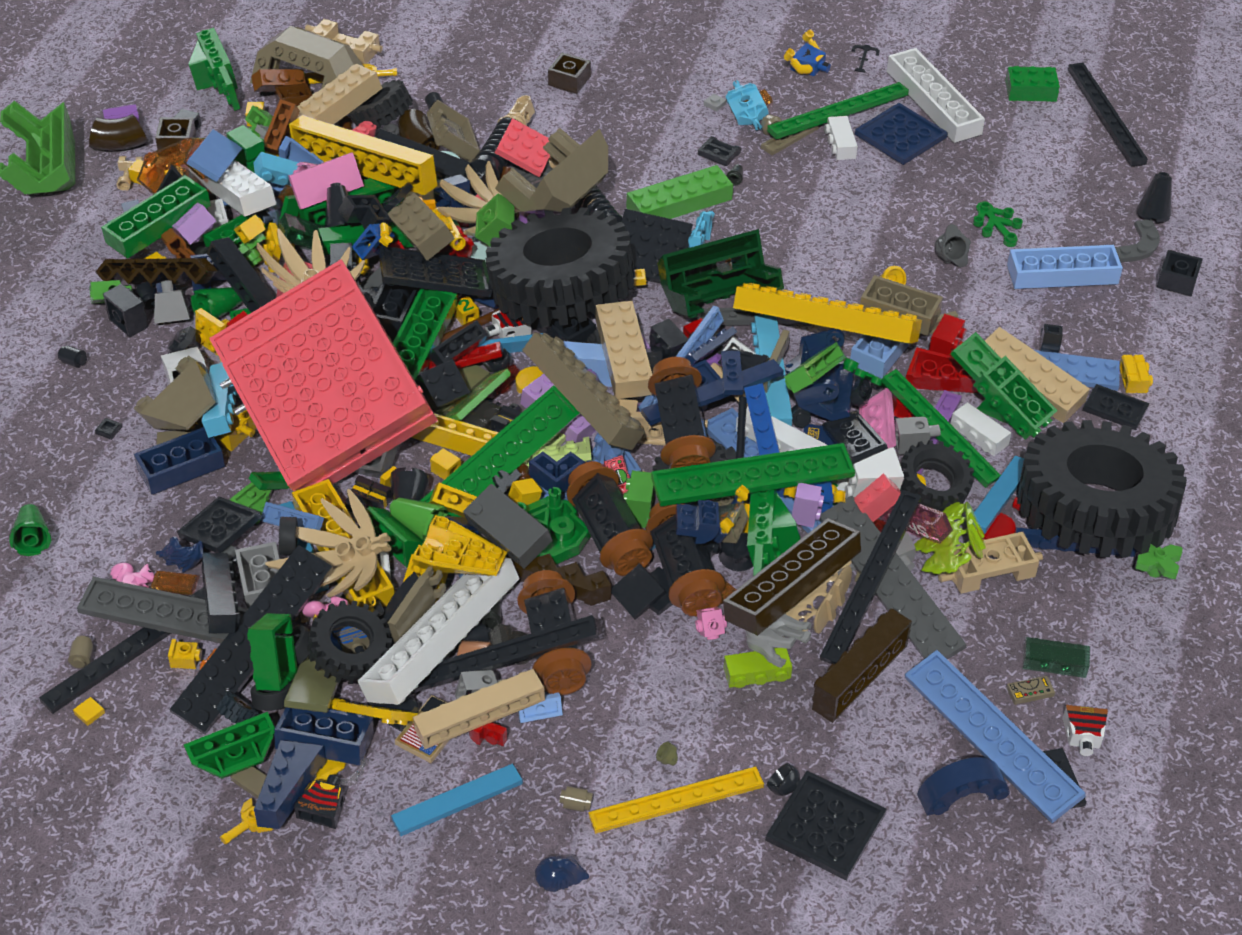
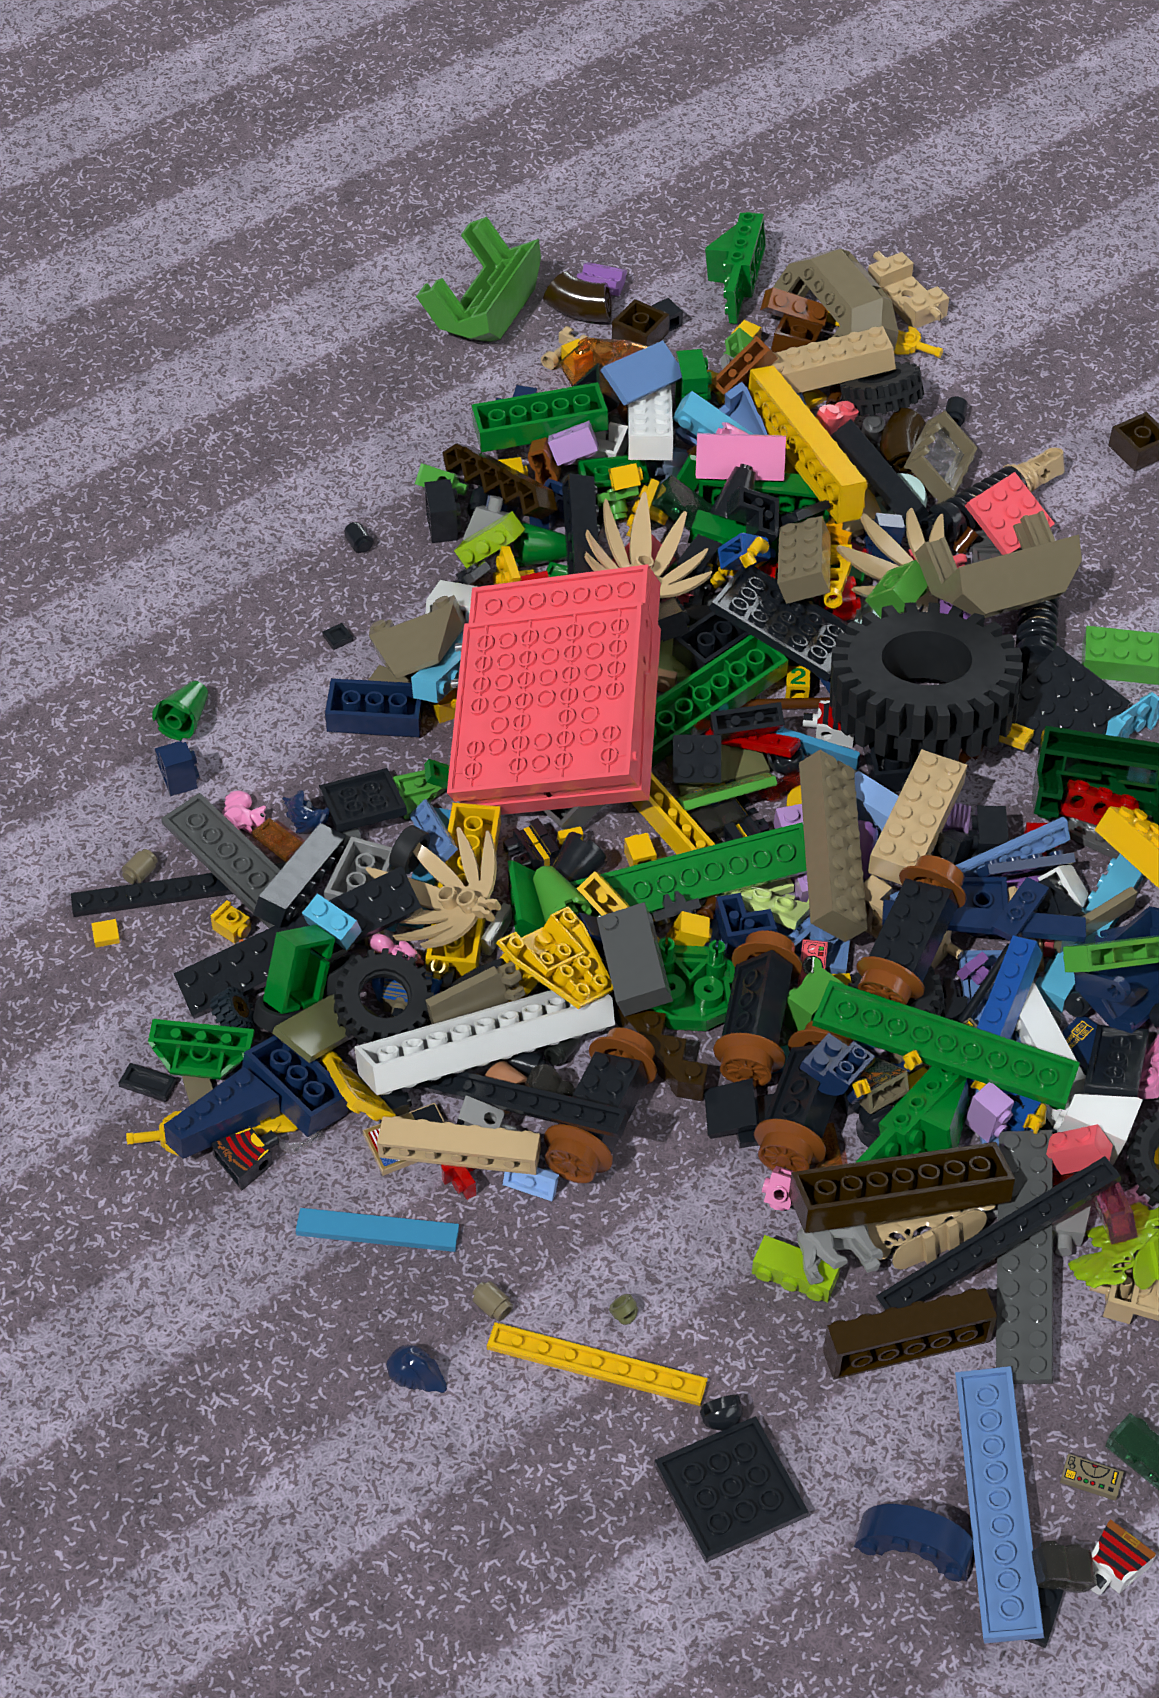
camera: 35 degrees right, 5 degrees up
(57, 569) = (177, 767): none -> dark blue brick
(180, 312) = (489, 539): none -> lime brick
(205, 795) = (147, 1082): none -> black tile
(275, 603) = (332, 920): none -> medium azure brick
(712, 294) = (1085, 809): none -> red brick
(724, 427) = (975, 969): none -> medium lavender tile
(1064, 747) = (1064, 1567): none -> clear smoke brick

